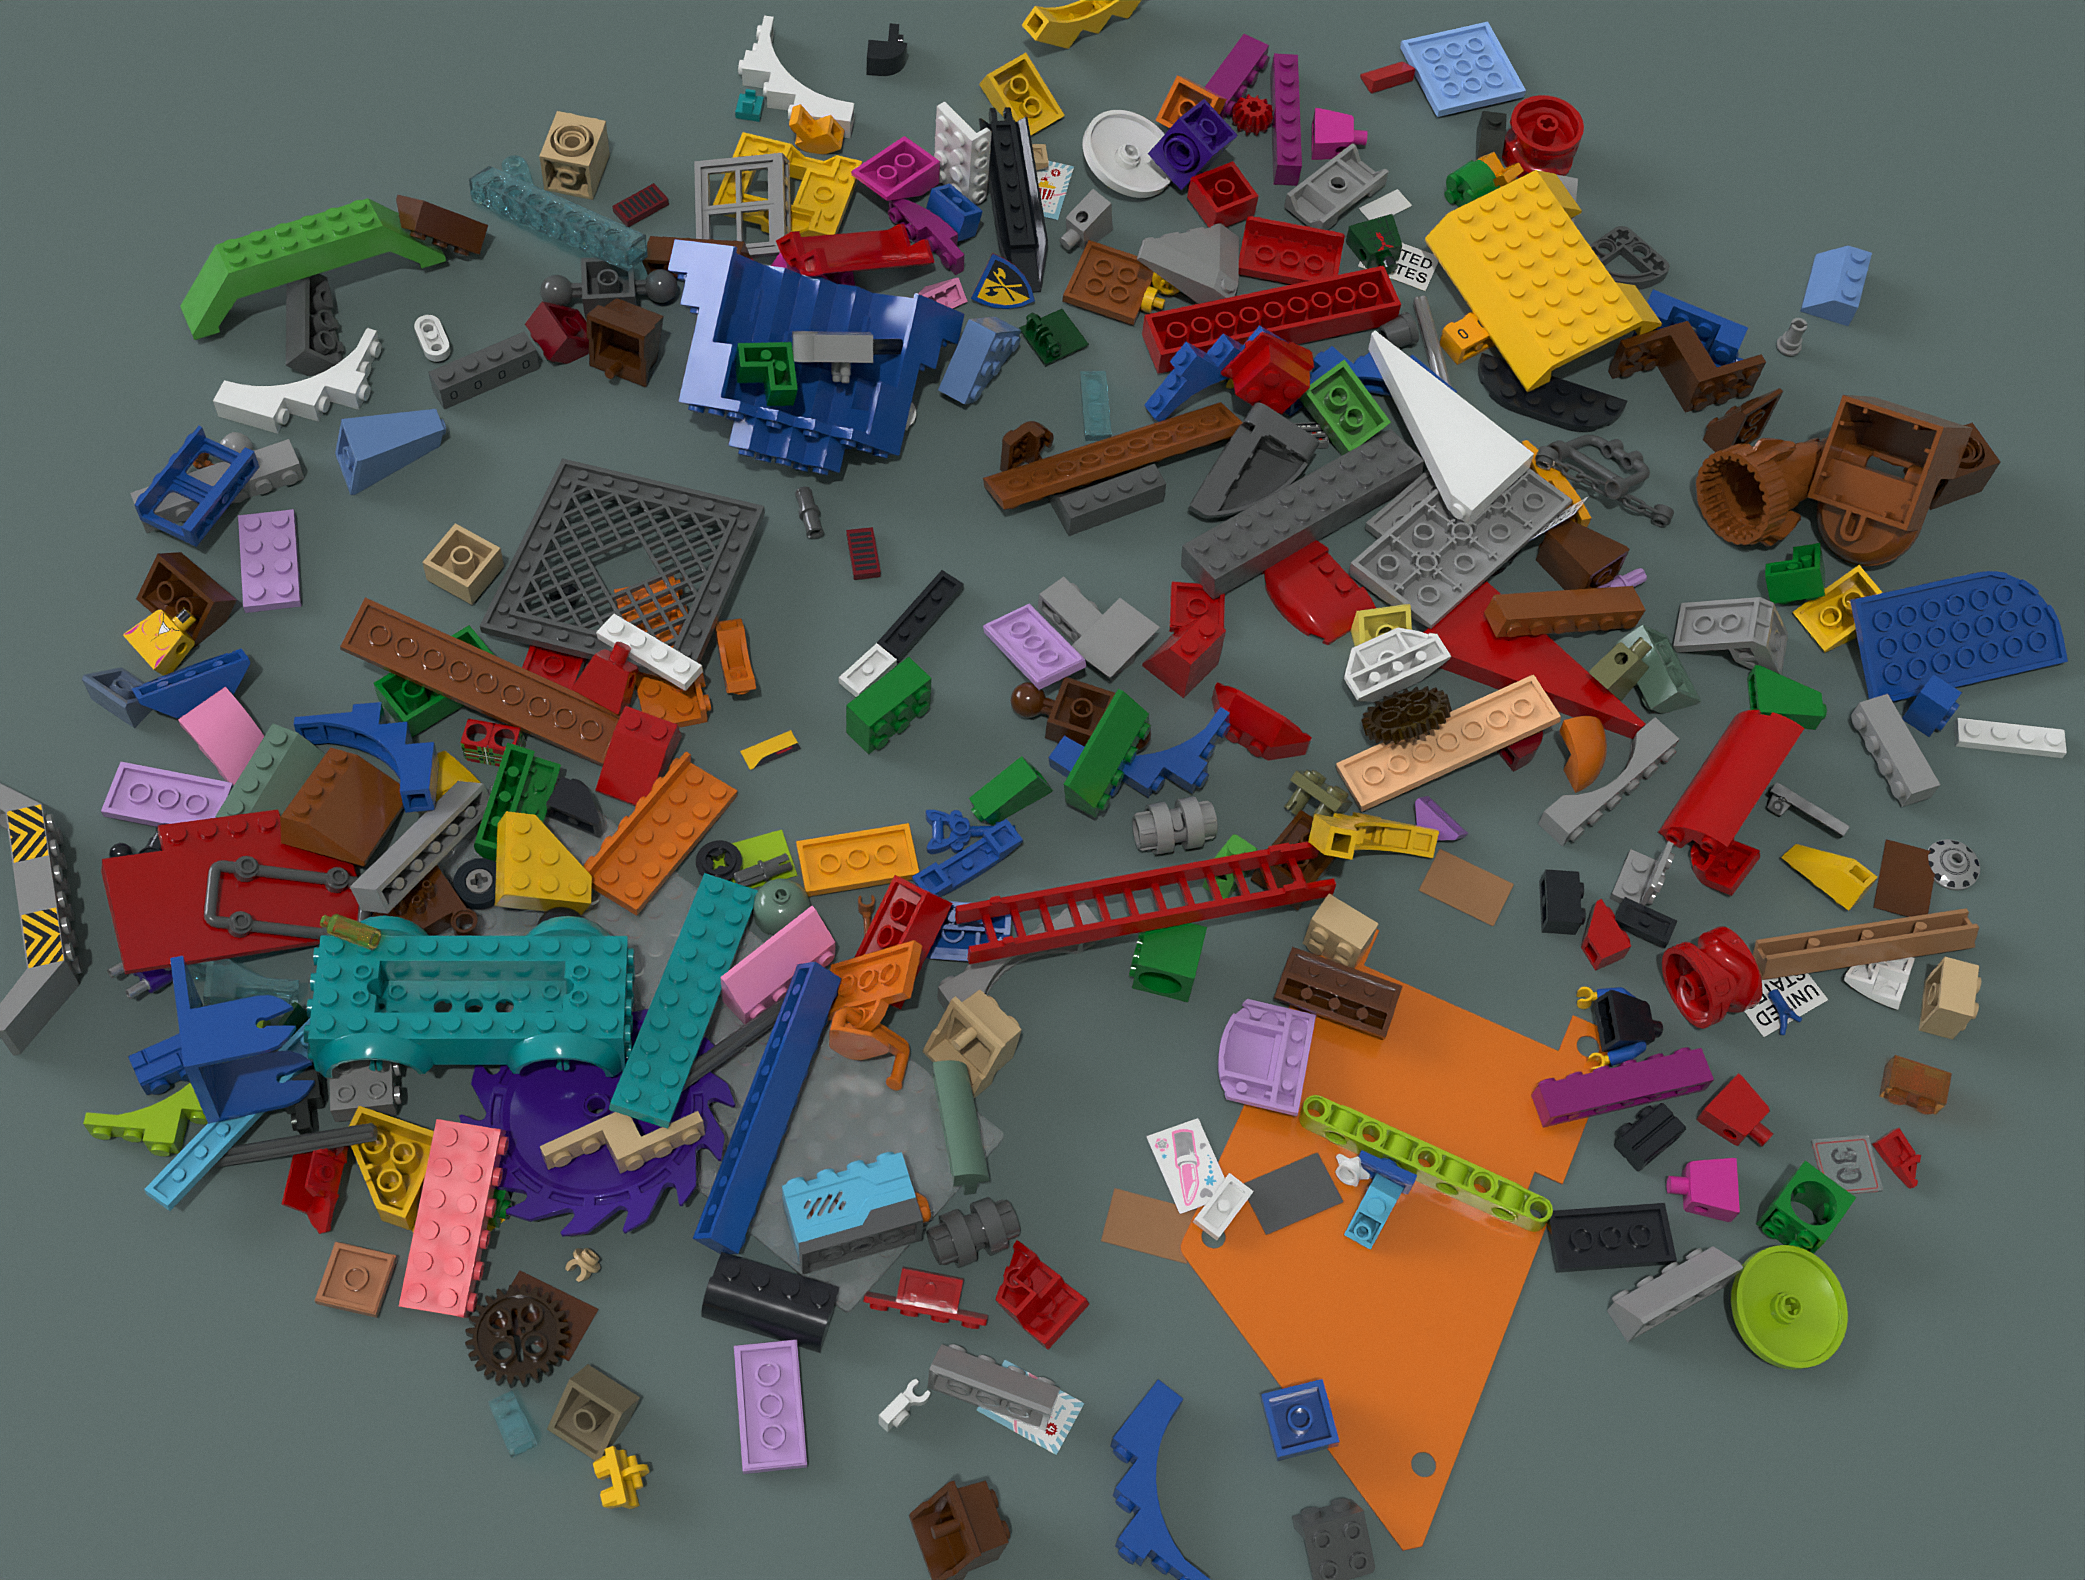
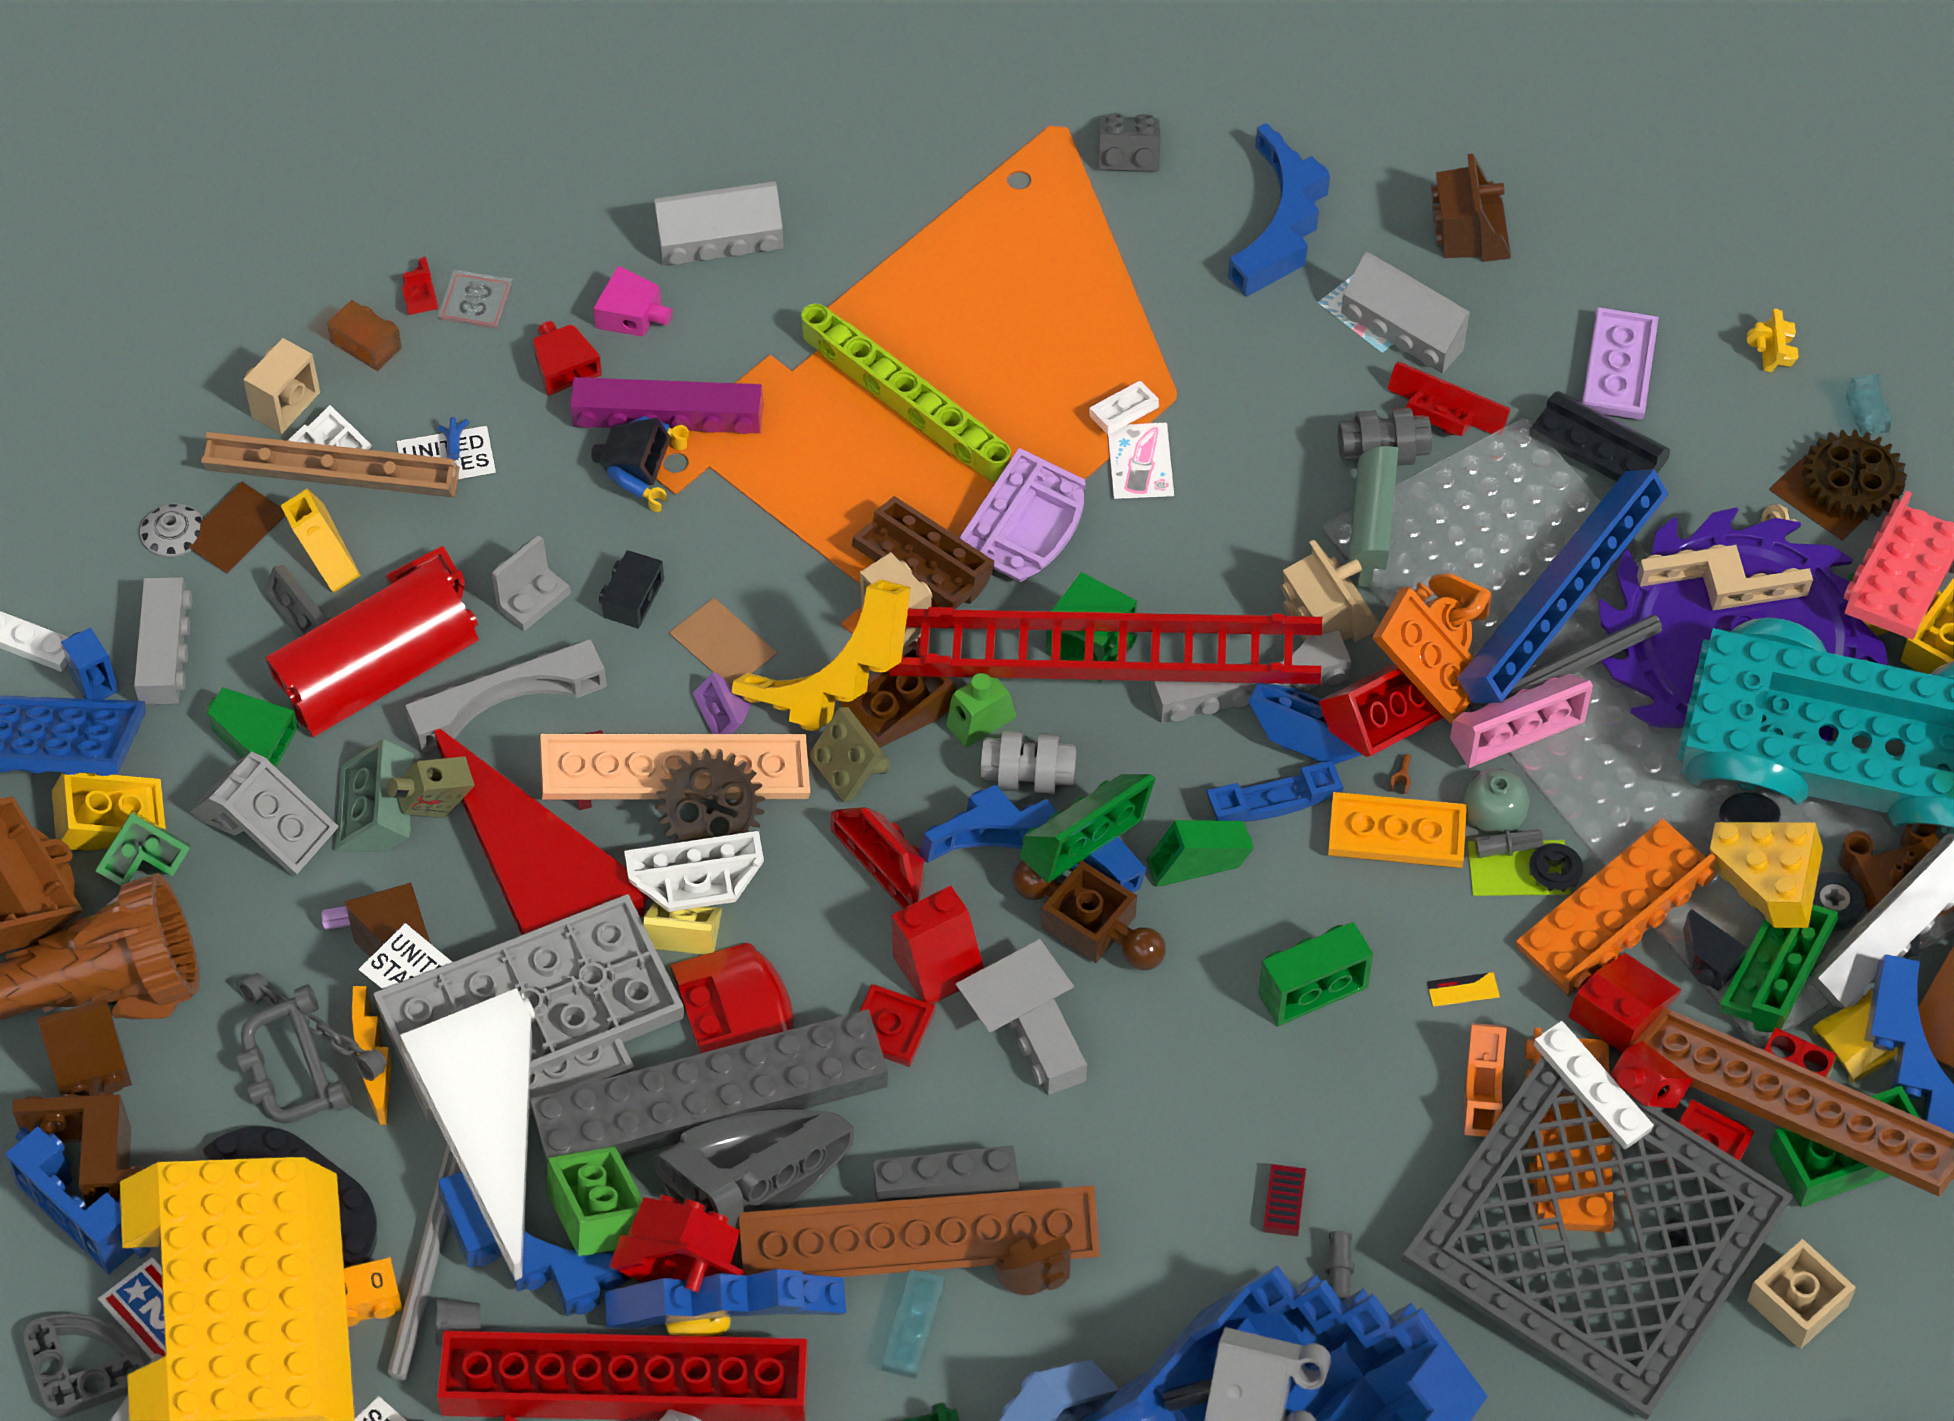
camera: 155 degrees left, 5 degrees down
(592, 1412) = (1788, 396): dark tan slope -> none
(684, 1002) = (1628, 703): teal plate -> none
(768, 364) = (1359, 1375): green brick -> none
(853, 1212) = (1503, 468): piece -> none
(867, 670) = (1323, 1042): white plate -> none
(897, 1411) = (1499, 328): white plate -> none
(920, 615) = (1238, 1094): black plate -> none
(959, 827) = (1273, 831): blue piece -> none
(1034, 646) = (1115, 1005): lavender plate -> none
(1038, 1297) = (1333, 384): red slope -> none
(1146, 1225) = (1203, 424): medium nougat sticker -> none
(1292, 1193) = (1046, 412): dark grey sticker -> none
(1300, 1420) = (1125, 219): blue brick -> none
(1350, 1170) = (984, 401): white plate -> none
(1373, 1211) = (973, 365): medium azure slope -> none
(1387, 1169) = (950, 389): blue plate -> none
(1564, 611) = (461, 871): dark orange brick -> none
(1588, 750) = (516, 725): orange brick -> none
(1603, 938) = (607, 543): red slope -> none
(1611, 1237) = (749, 292): black plate -> none
(1645, 922) = (560, 554): black plate -> none
(1649, 1136) = (664, 358): black brick -> none
(1712, 977) = (524, 452): red piece -> none
(1789, 1307) = (614, 187): lime dish -> none
(1818, 1193) = (553, 250): green brick -> none

